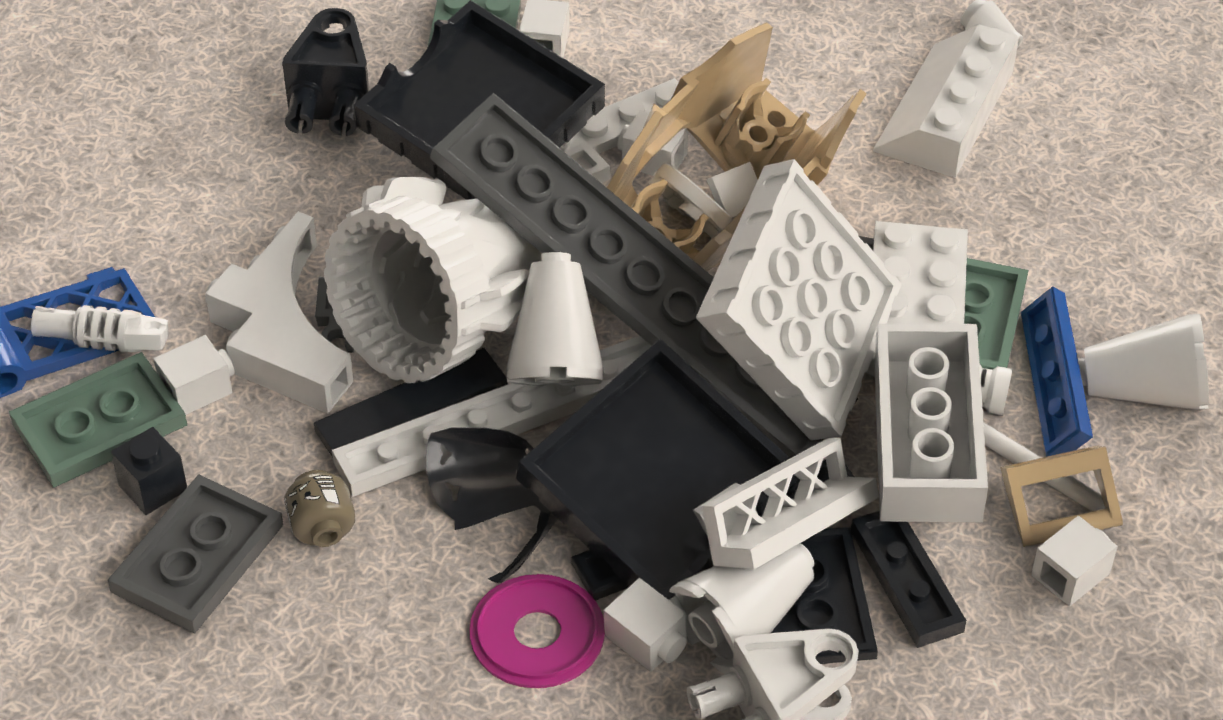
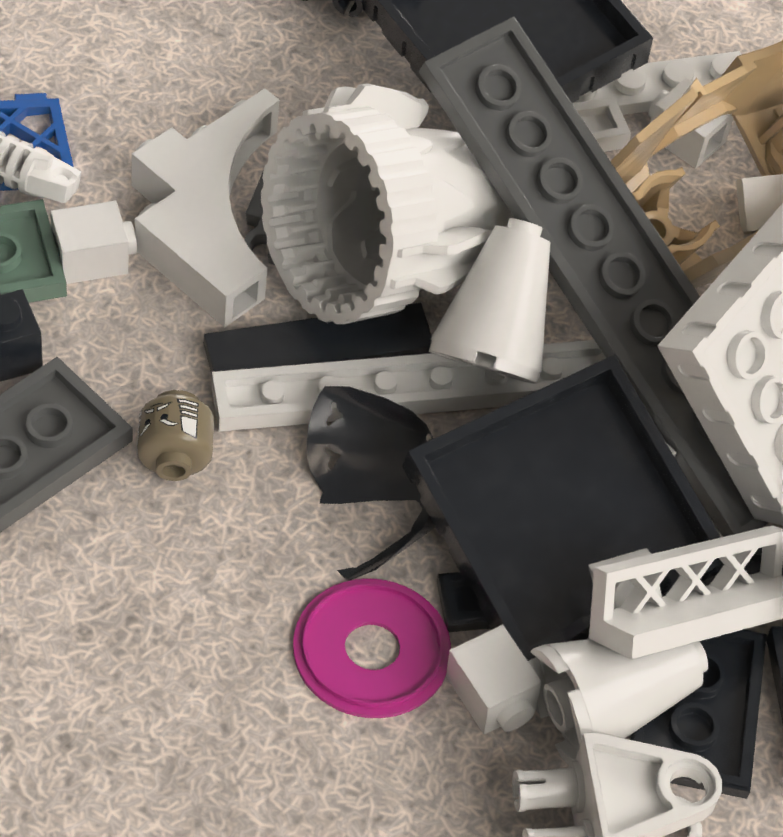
camera: 10 degrees right, 5 degrees up
(691, 200) = (709, 199): white tile -> none

